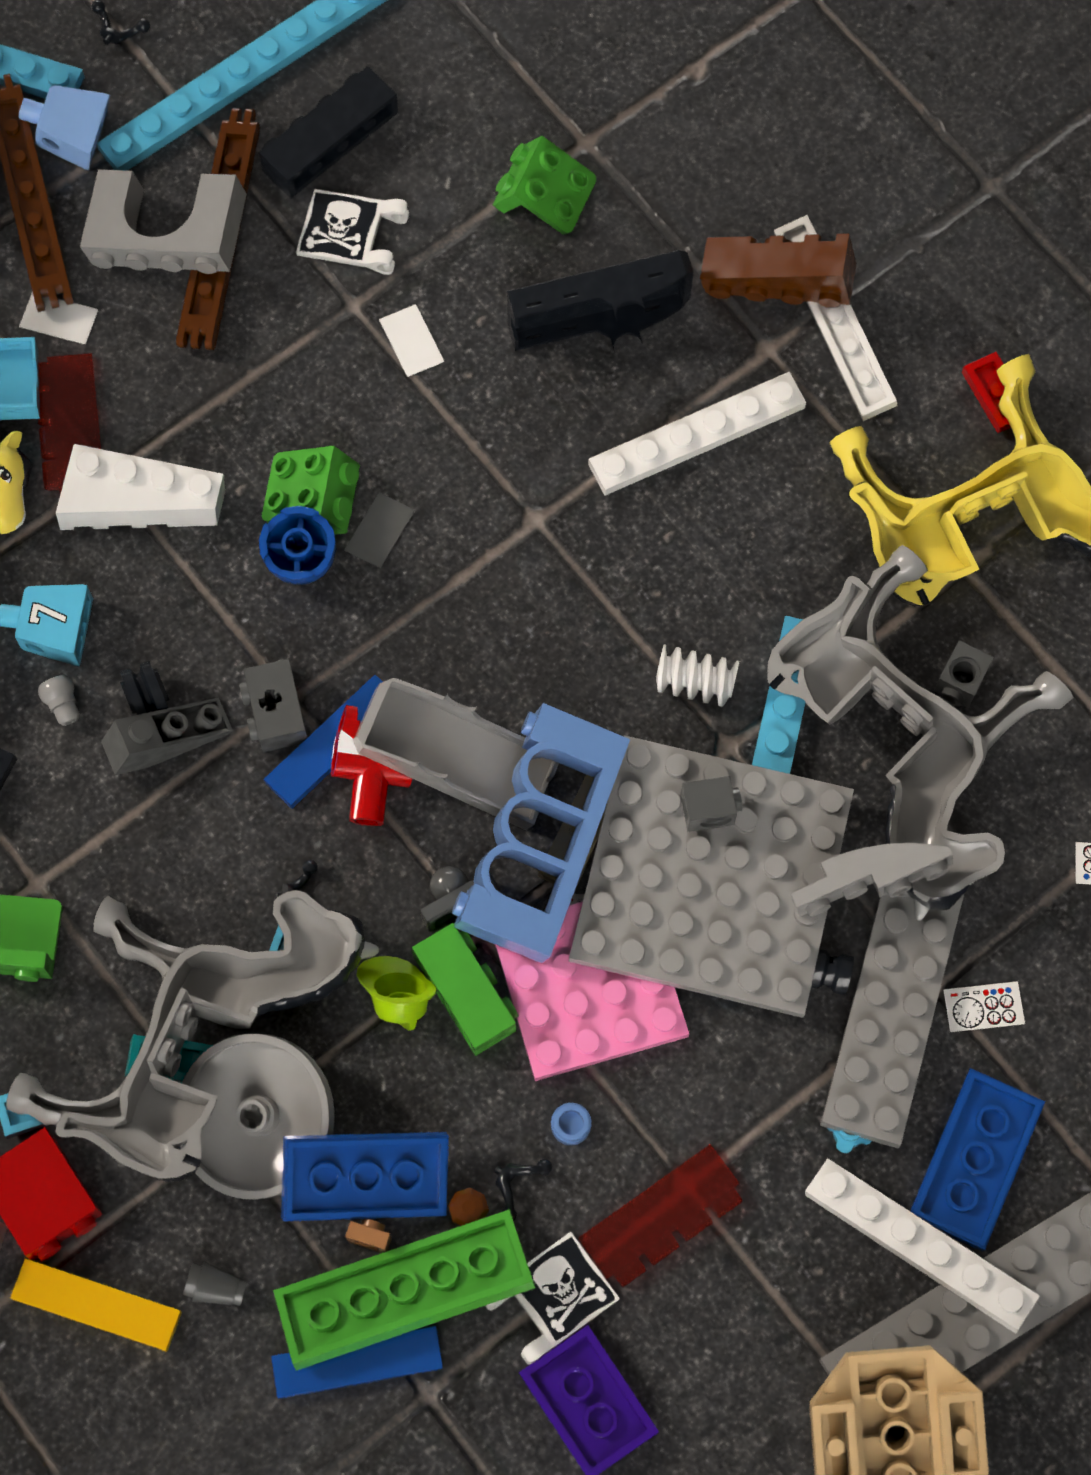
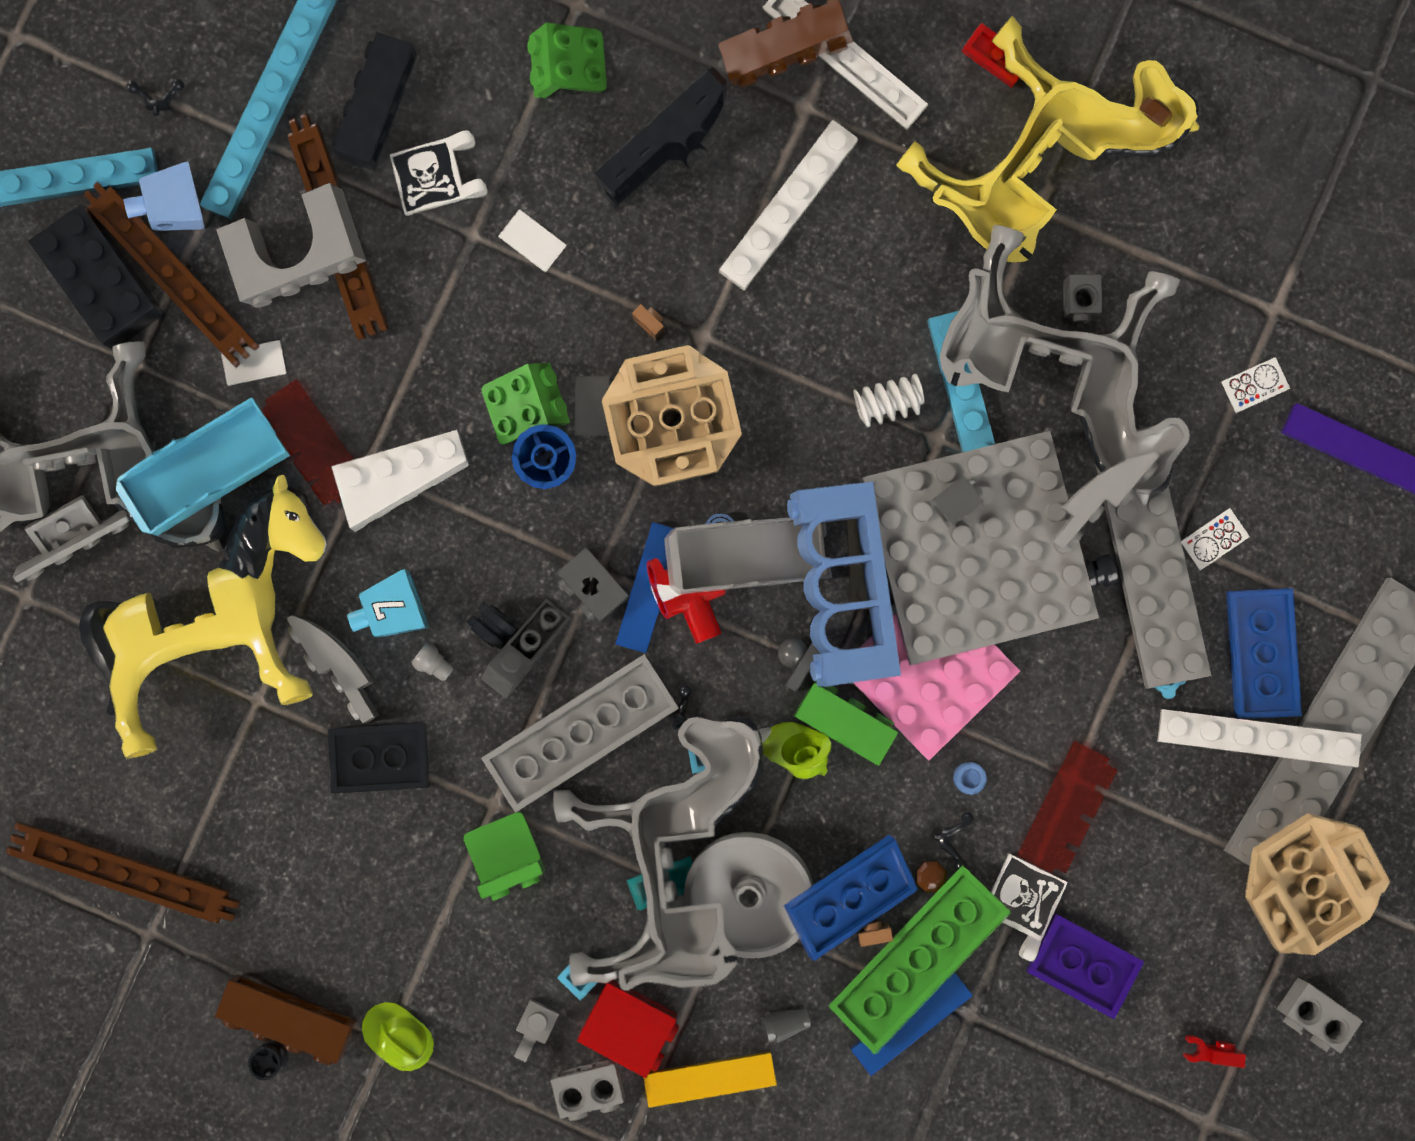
camera: 25 degrees left, 15 degrees up
(172, 851) = (579, 733): none -> light grey plate
(462, 536) = (663, 383): none -> tan piece
(486, 472) = (649, 320): none -> medium nougat plate

